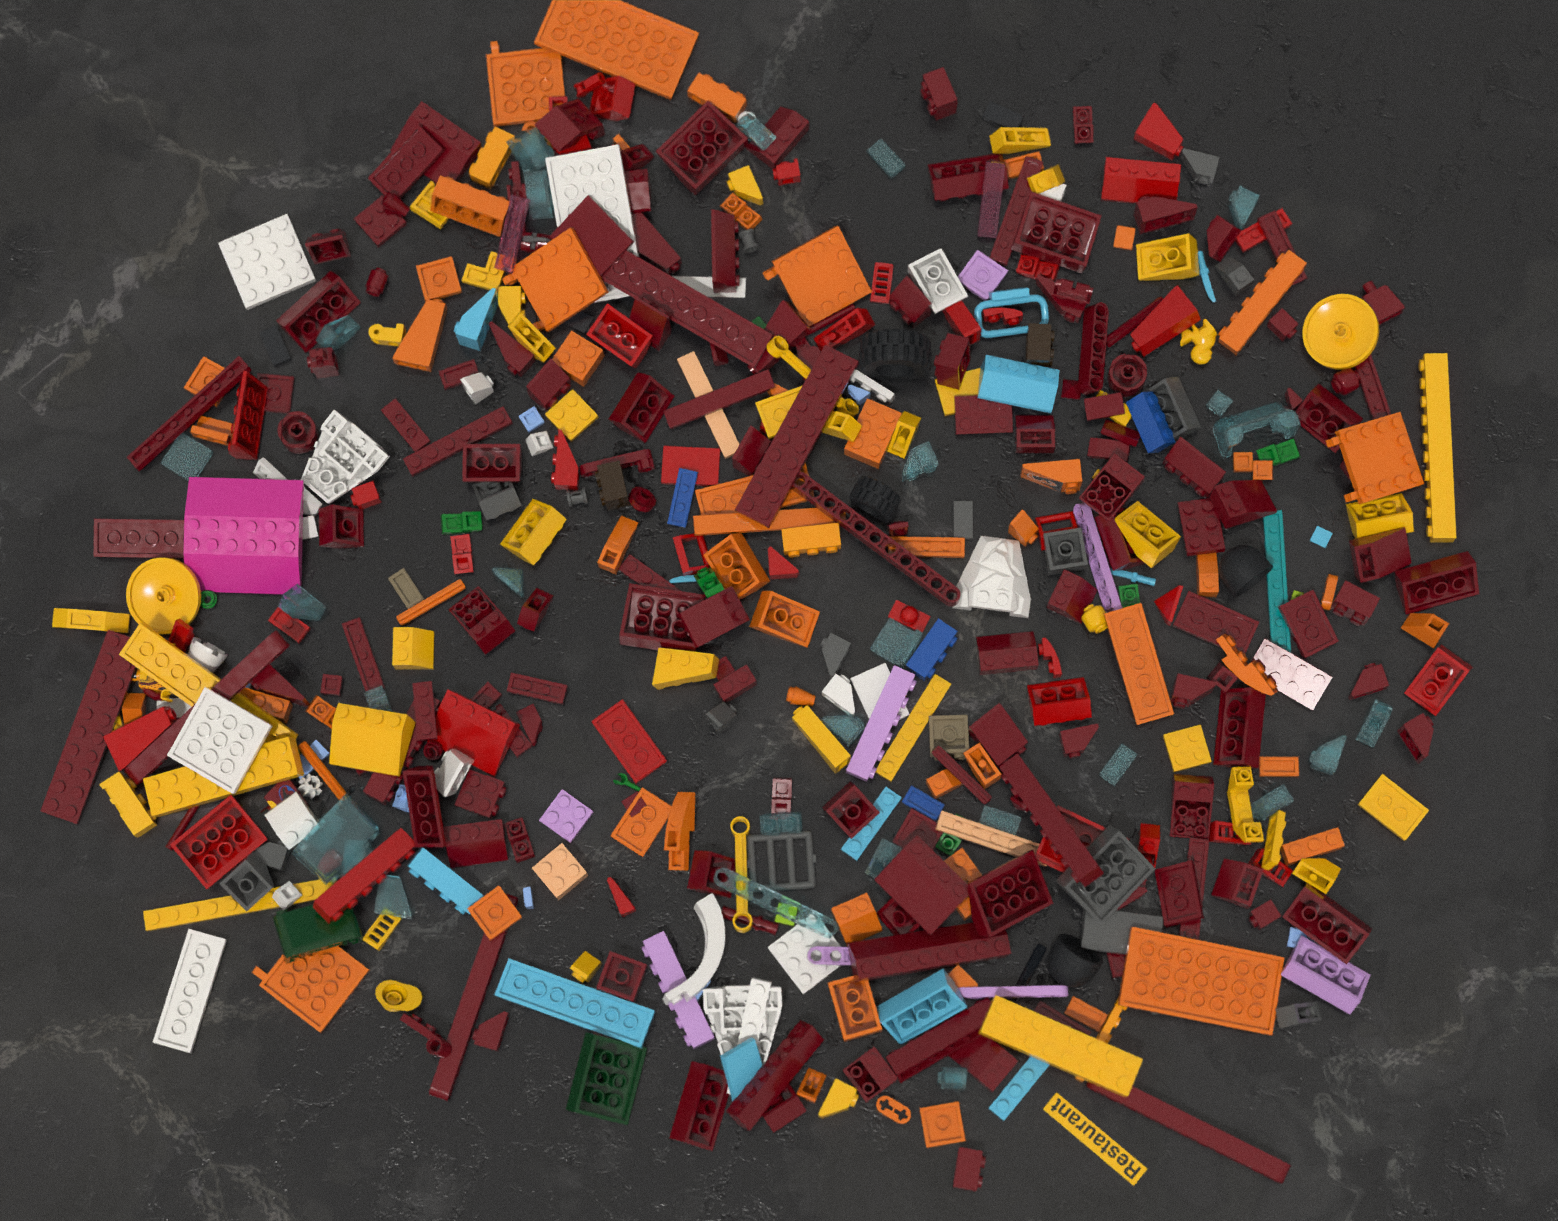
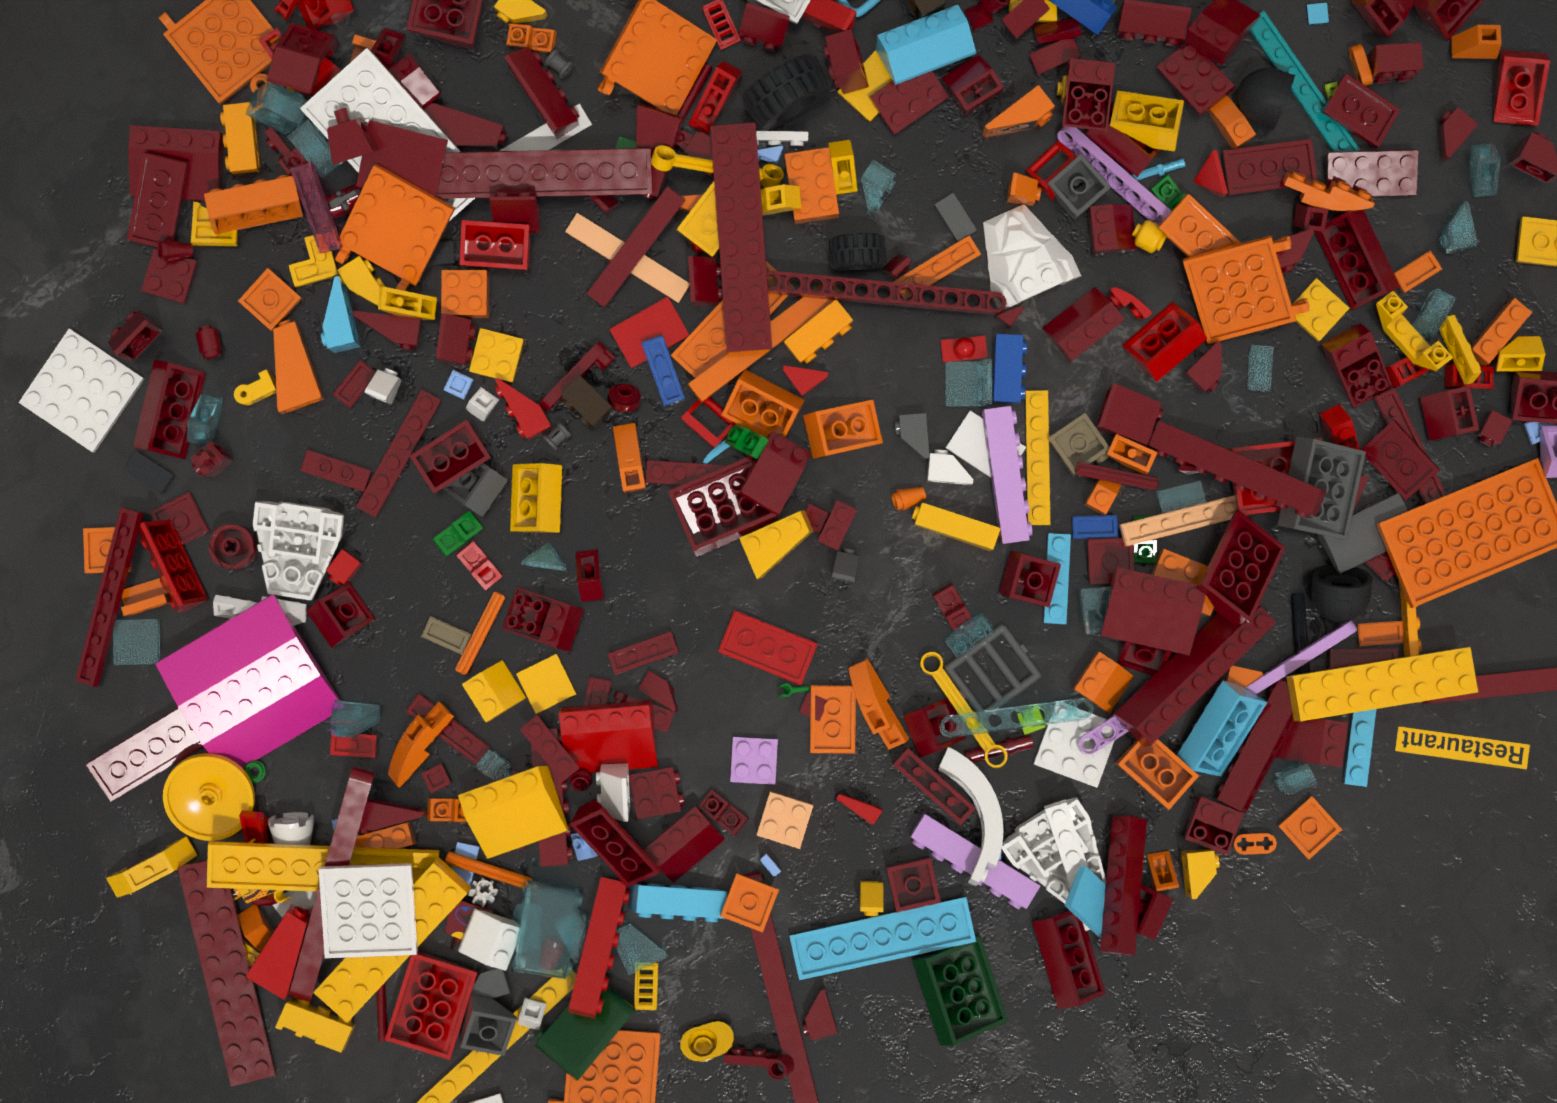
camera: 35 degrees left, 10 degrees up
(309, 527) = (309, 635): white slope -> none
(327, 652) = (412, 746): none -> orange slope
(454, 667) = (546, 683): none -> yellow tile
(565, 198) = (349, 138): none -> dark red torso
(641, 407) = (561, 303): dark red slope -> none
(683, 915) = (933, 786): none -> dark red brick
(844, 727) = (973, 500): clear light blue slope -> none
(957, 613) = (1008, 318): none -> dark red slope
(968, 1169) = (1362, 855): dark red brick -> none
(1137, 695) = (1242, 289): none -> orange plate

